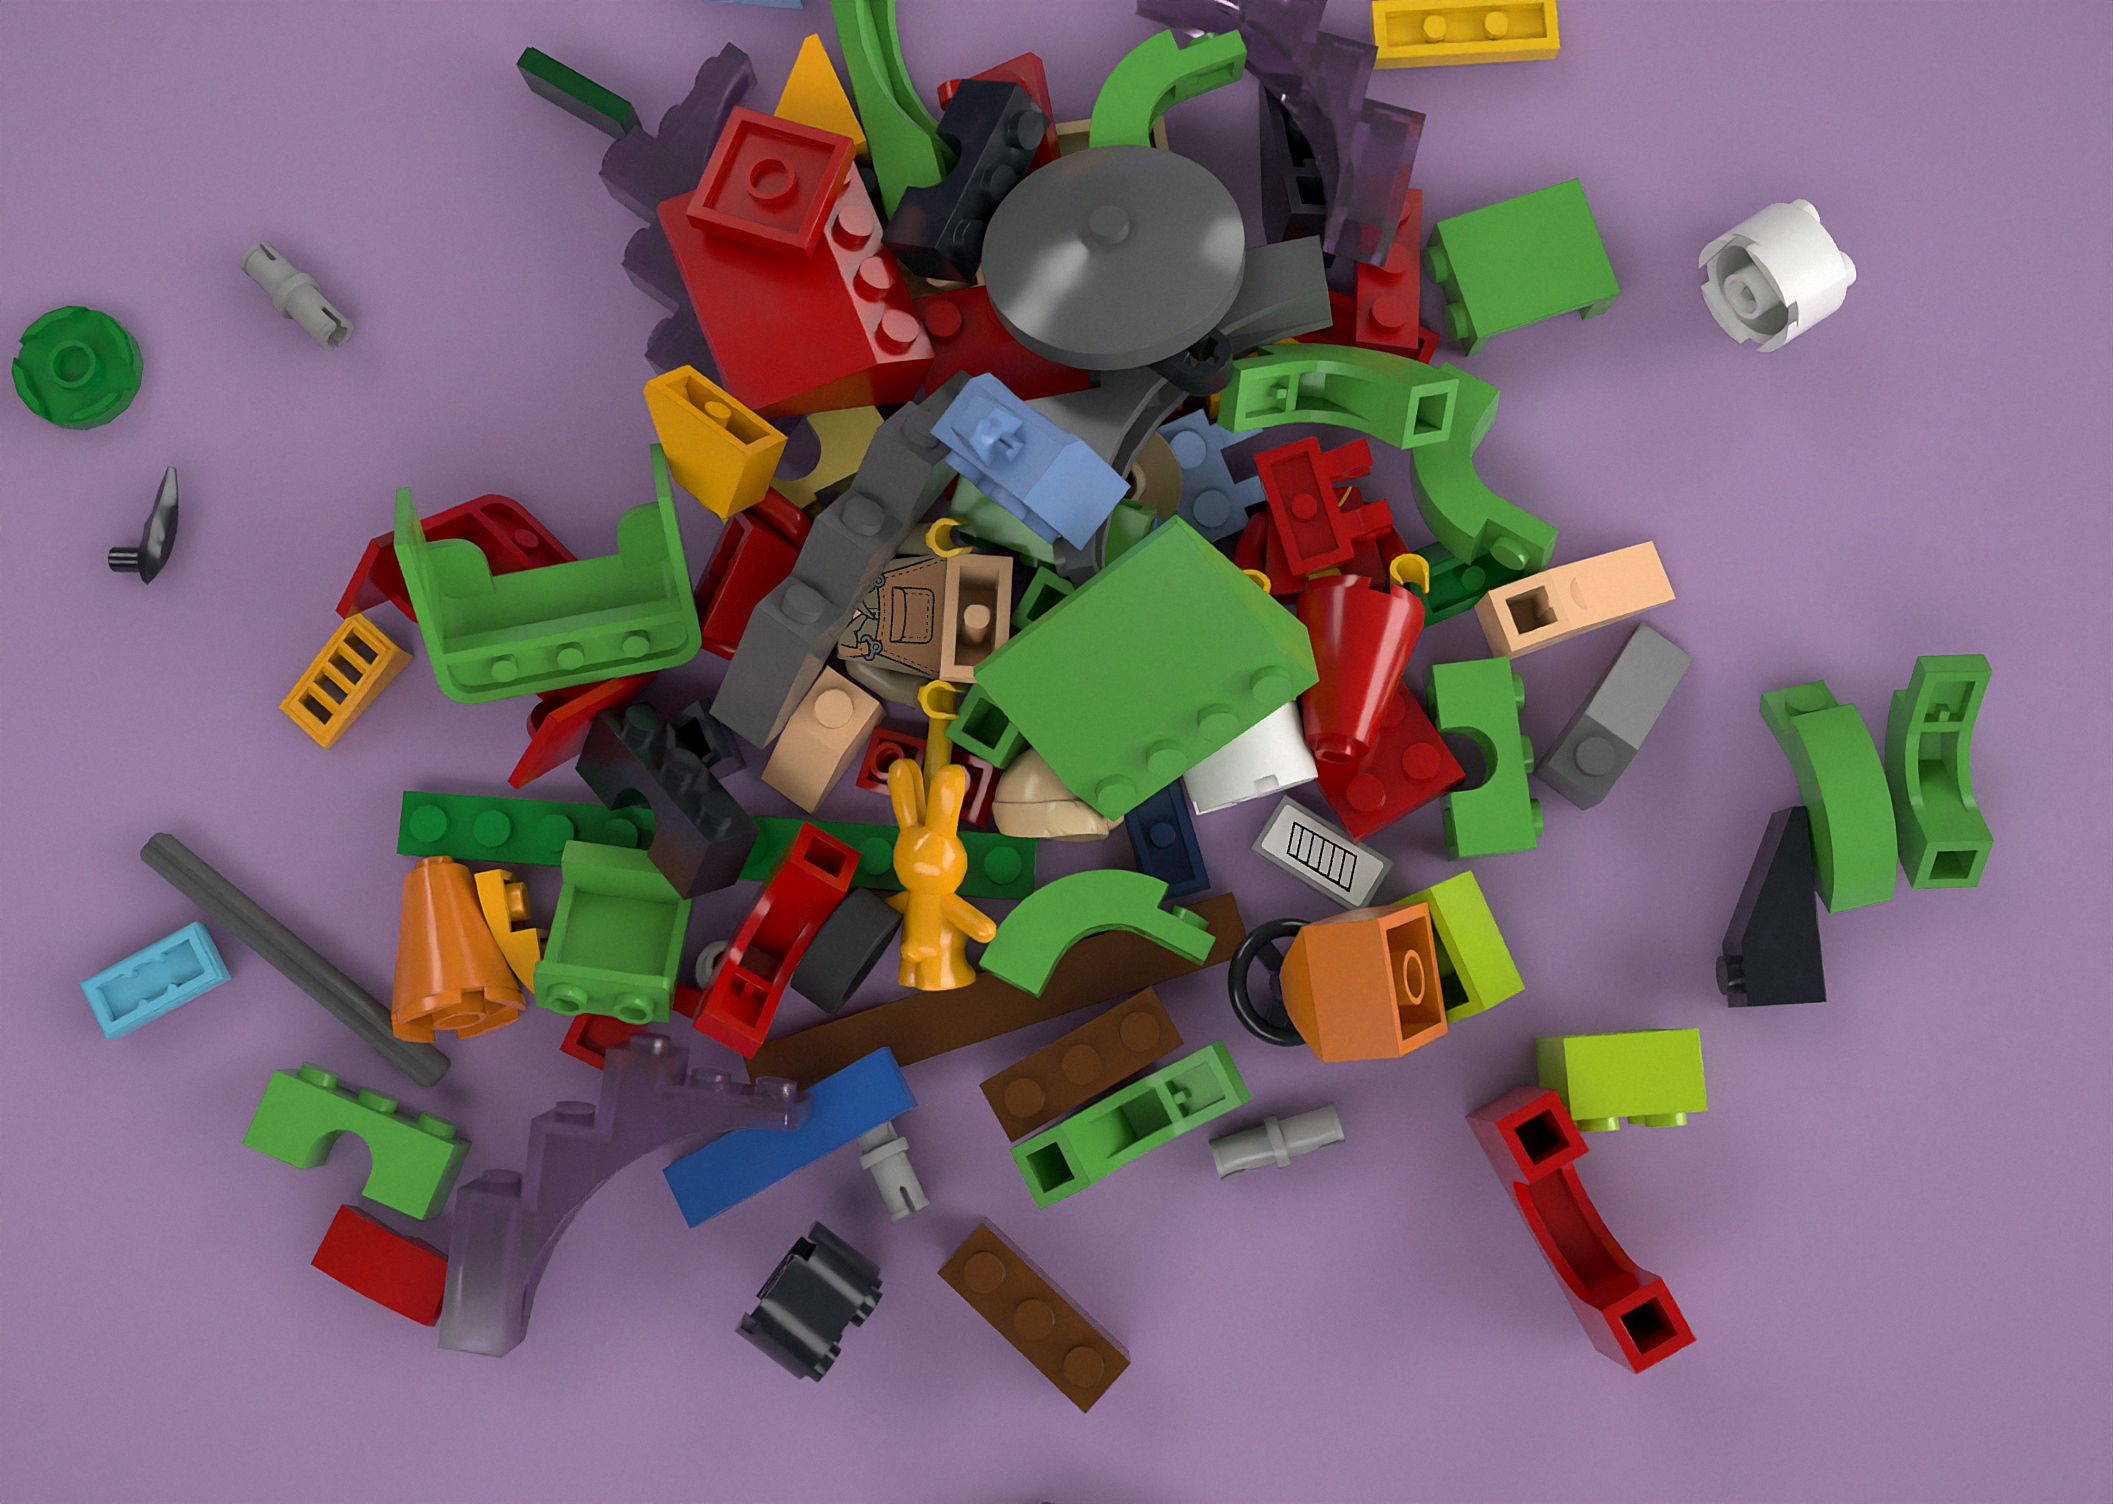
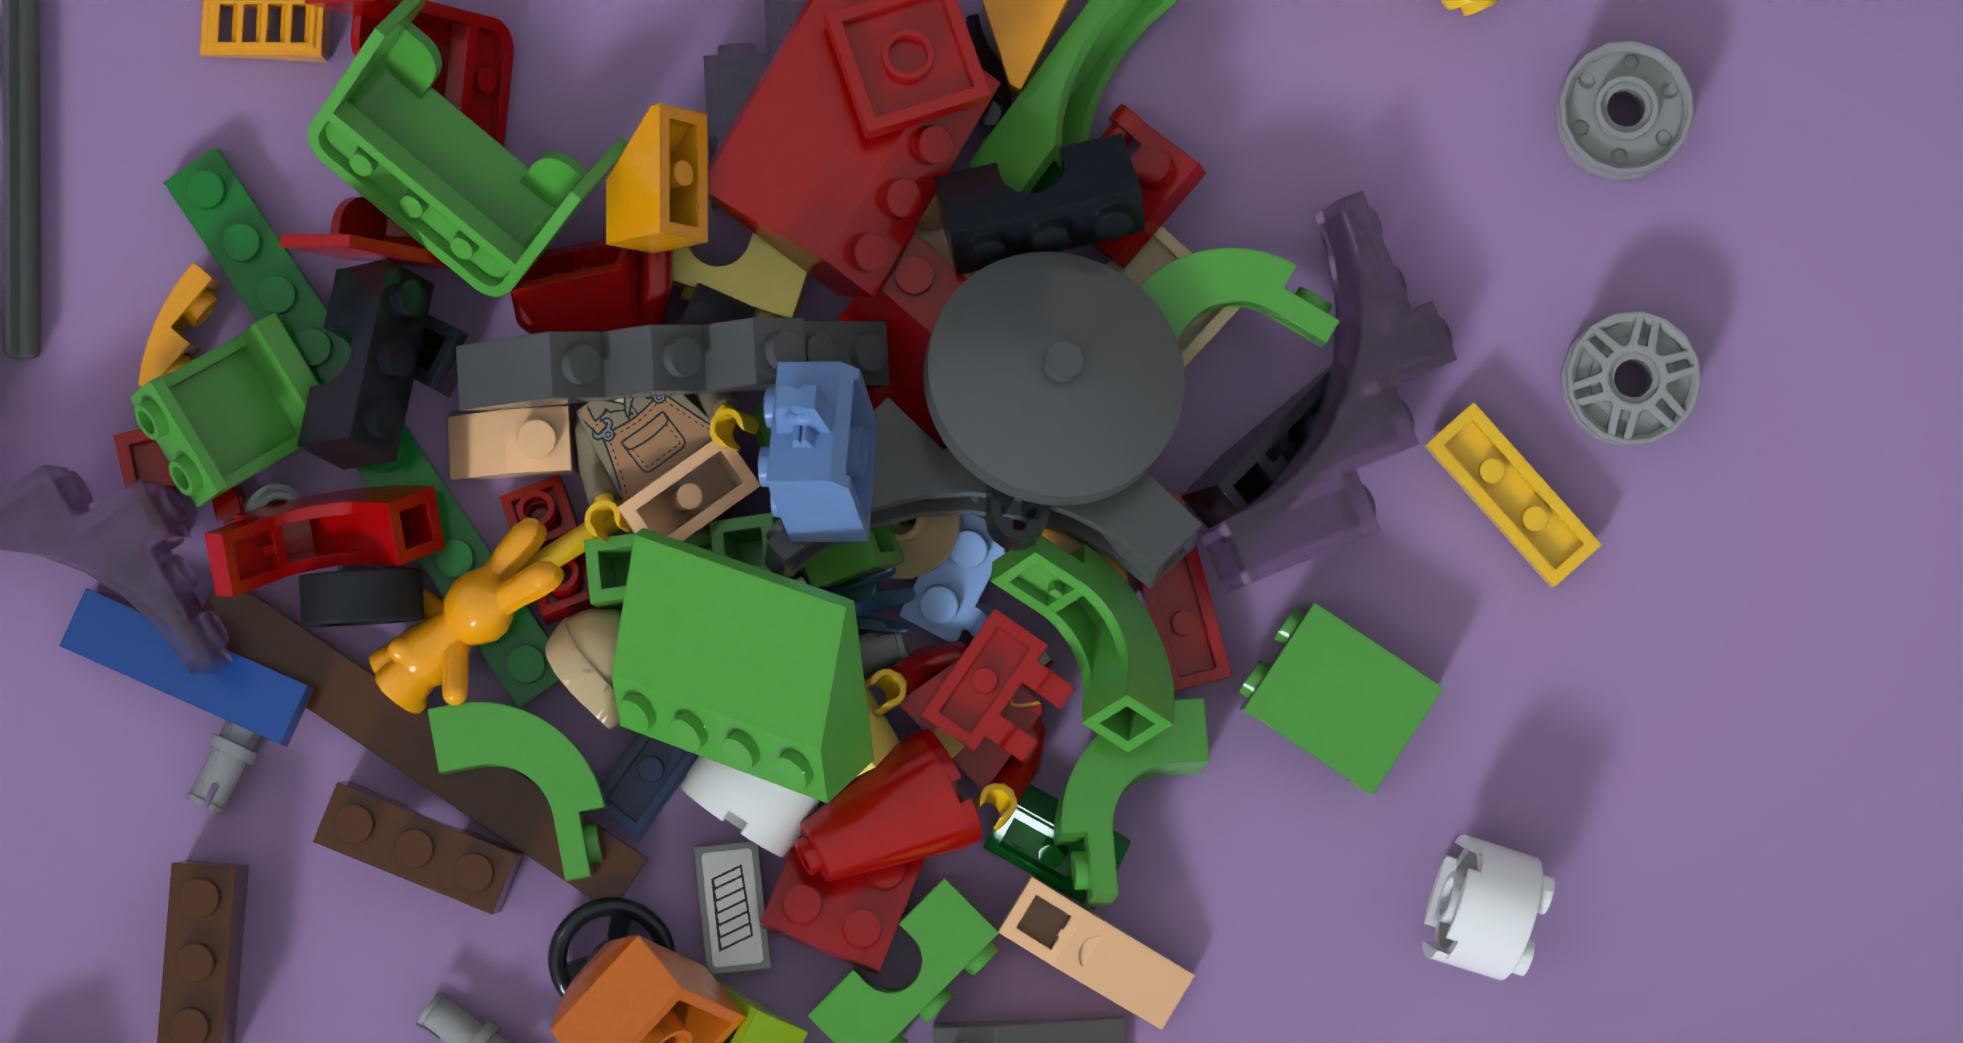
camera: 50 degrees right, 5 degrees up
(448, 960) = (115, 292): orange cone -> none
(811, 1303) = (76, 784): black brick -> none
(1129, 1123) = (399, 918): bright green arch -> none
(1388, 297) = (1211, 621): red plate -> none

